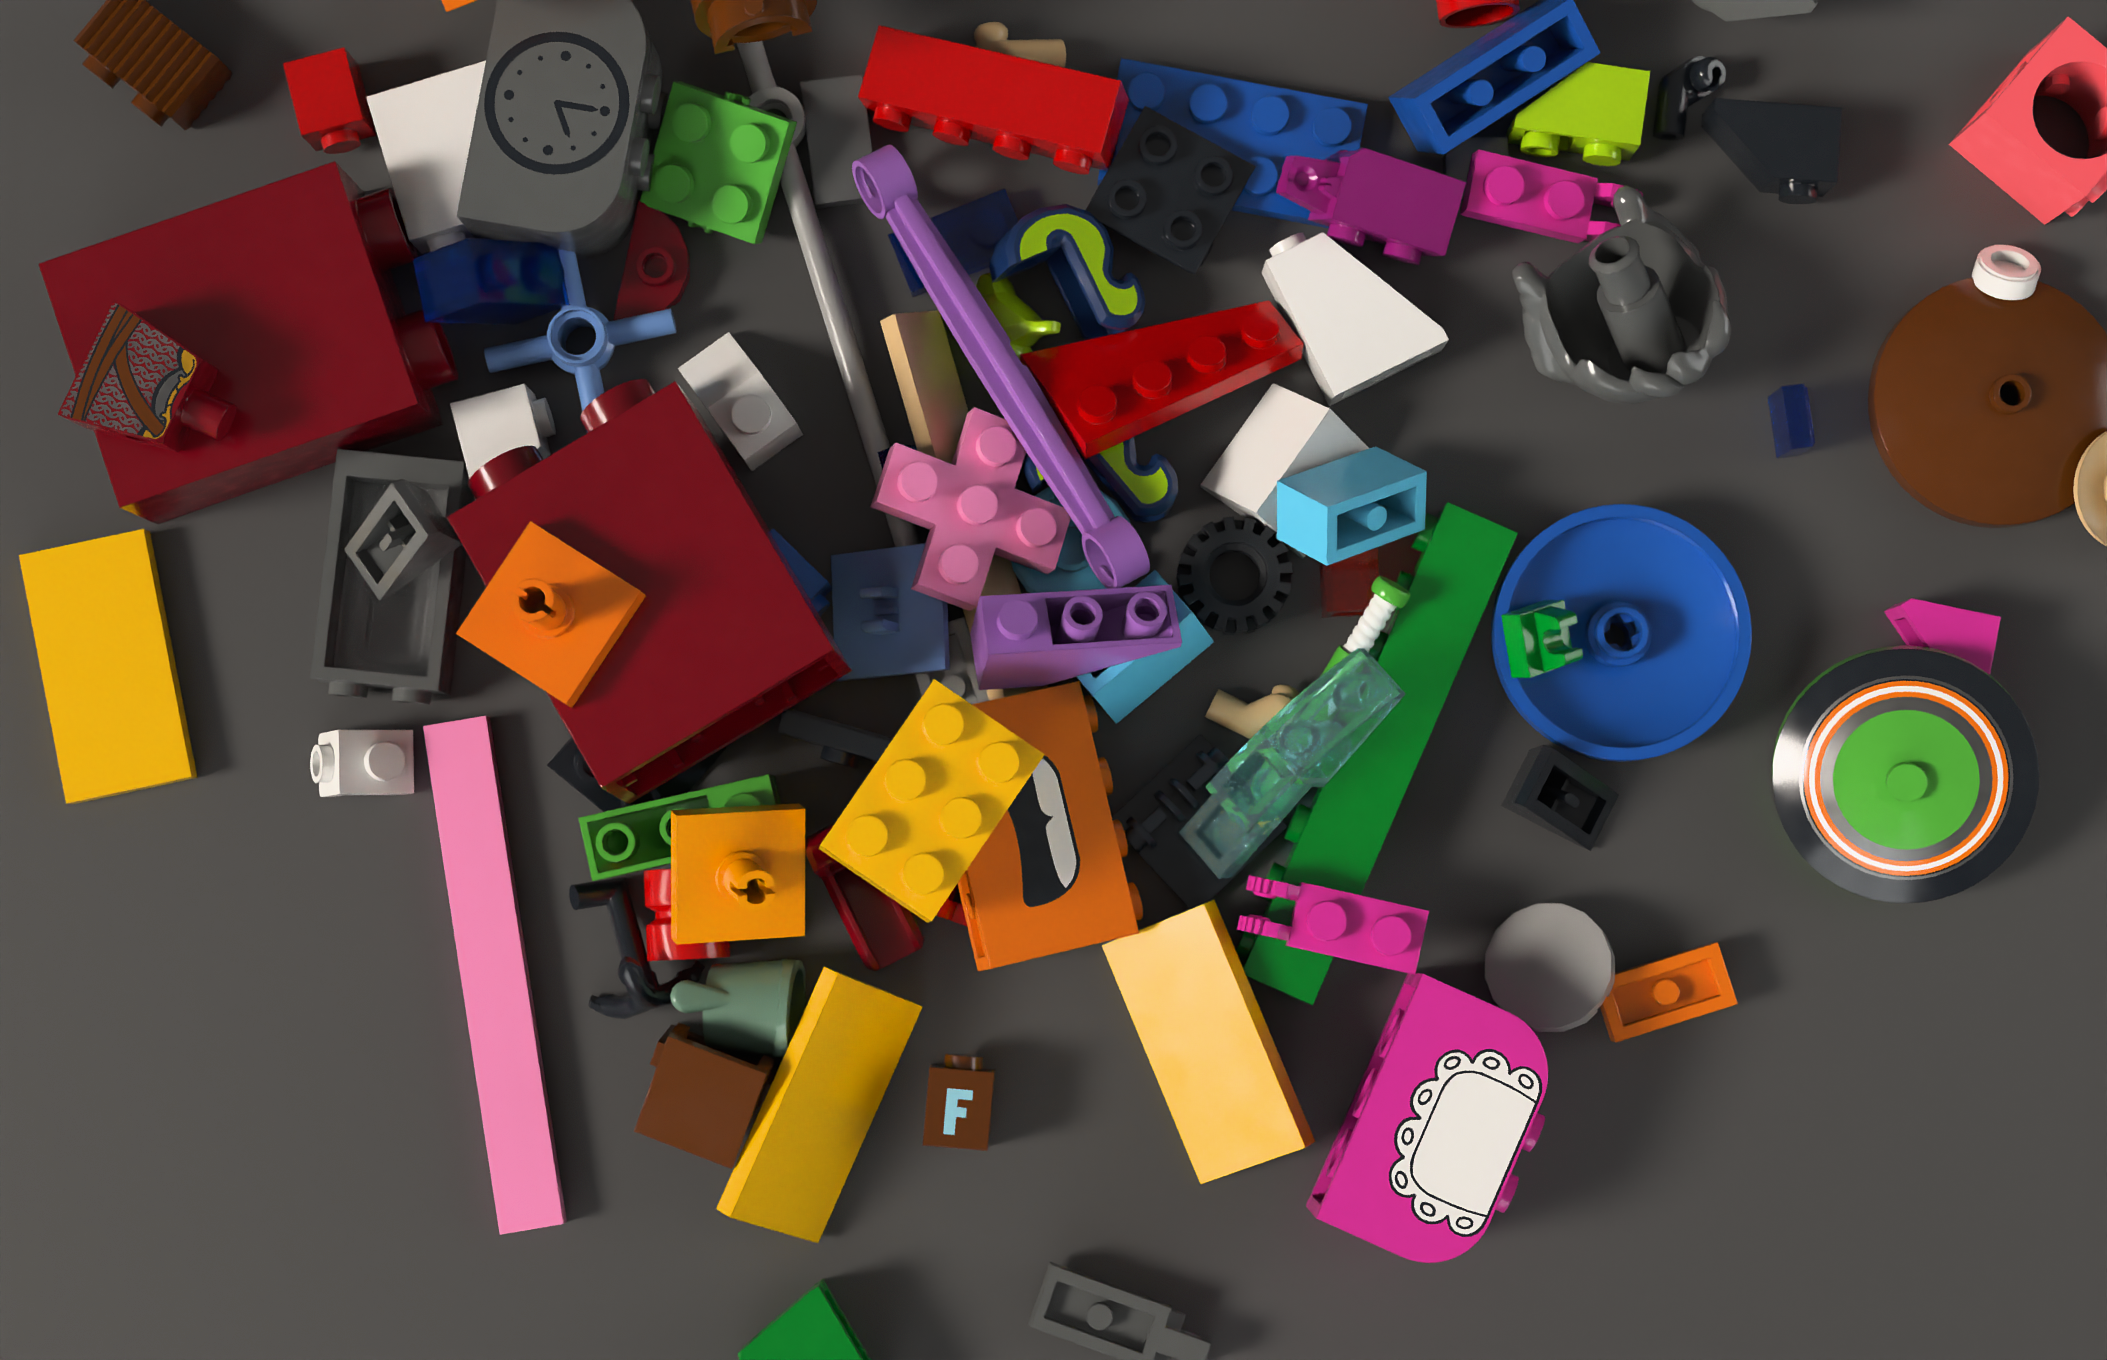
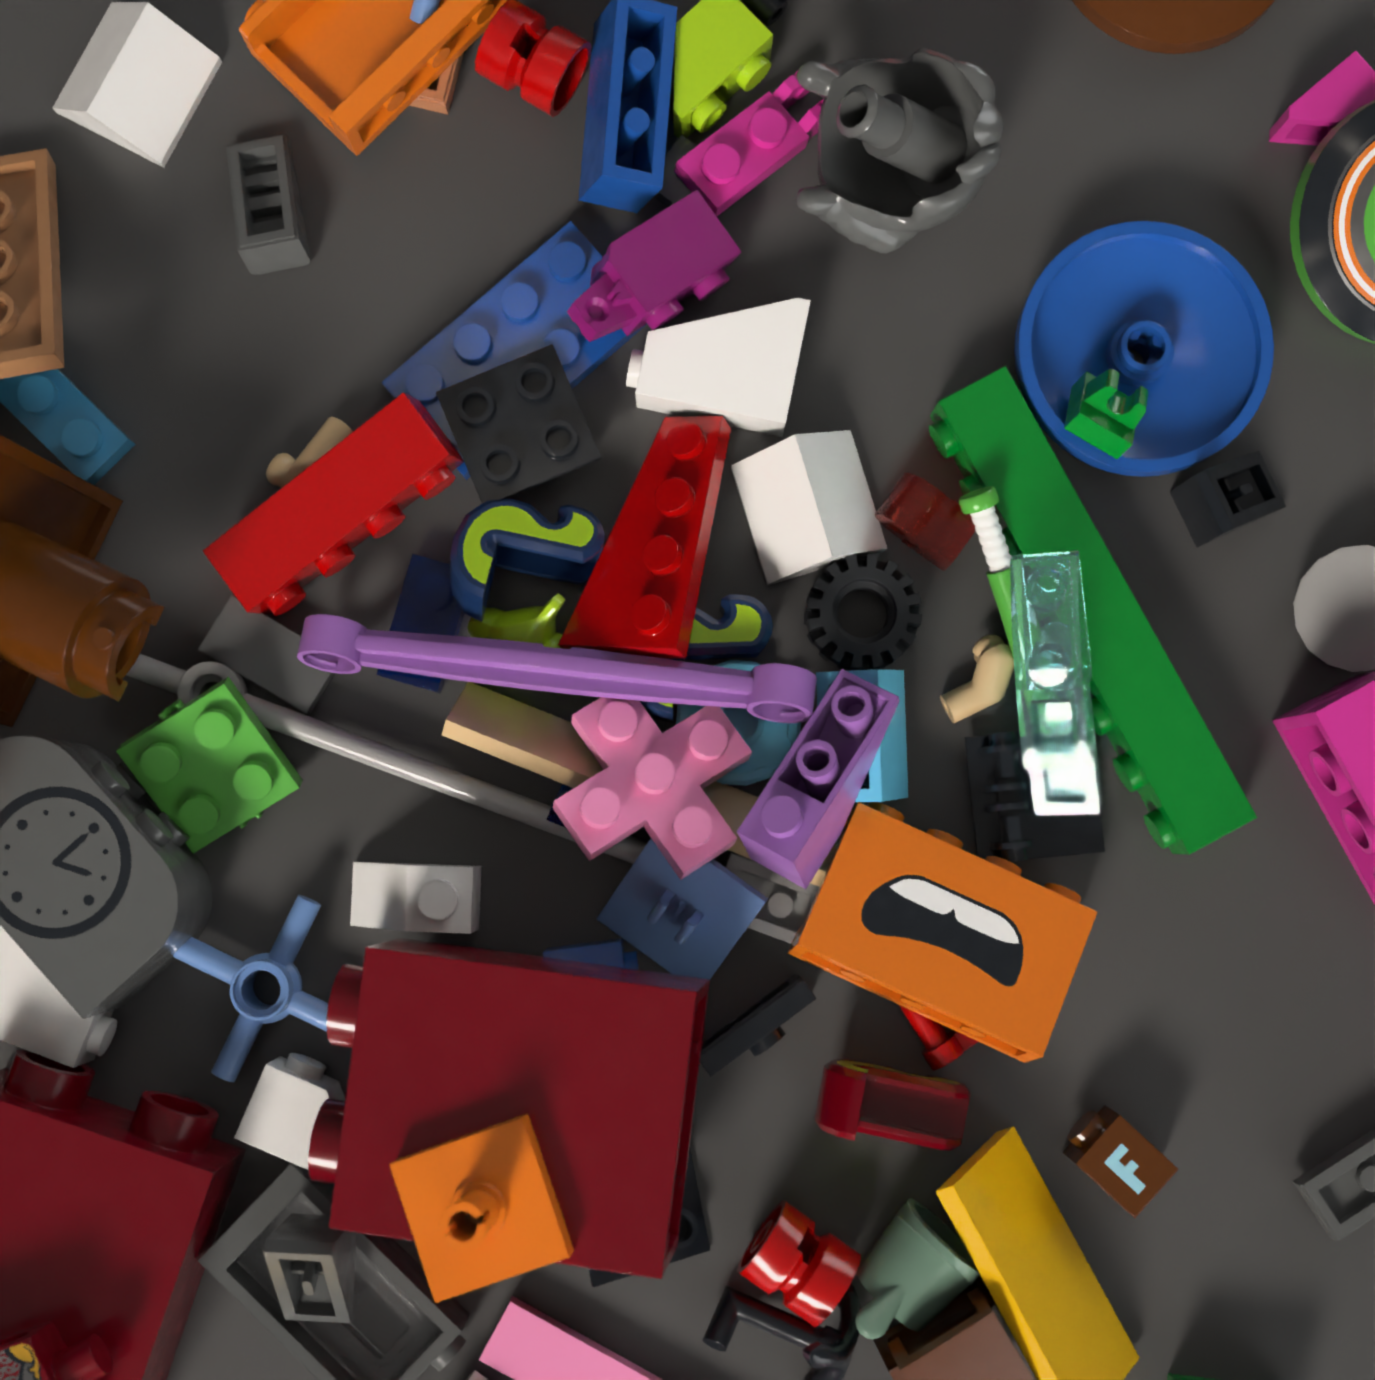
camera: 55 degrees left, 0 degrees up
(490, 282) = (159, 1029): clear blue brick -> none
(640, 834) = (729, 1211): bright green slope -> none
(654, 266) = (253, 880): dark red plate -> none
(737, 873) = (805, 1203): light orange tile -> none
(931, 801) = (878, 1006): yellow piece -> none
(1208, 1043) = (1223, 922): yellow tile -> none
(1342, 924) = (1214, 745): dark pink hinge -> none
(1351, 505) = (885, 478): medium azure brick -> none
(1791, 420) = (1074, 92): clear blue tile -> none

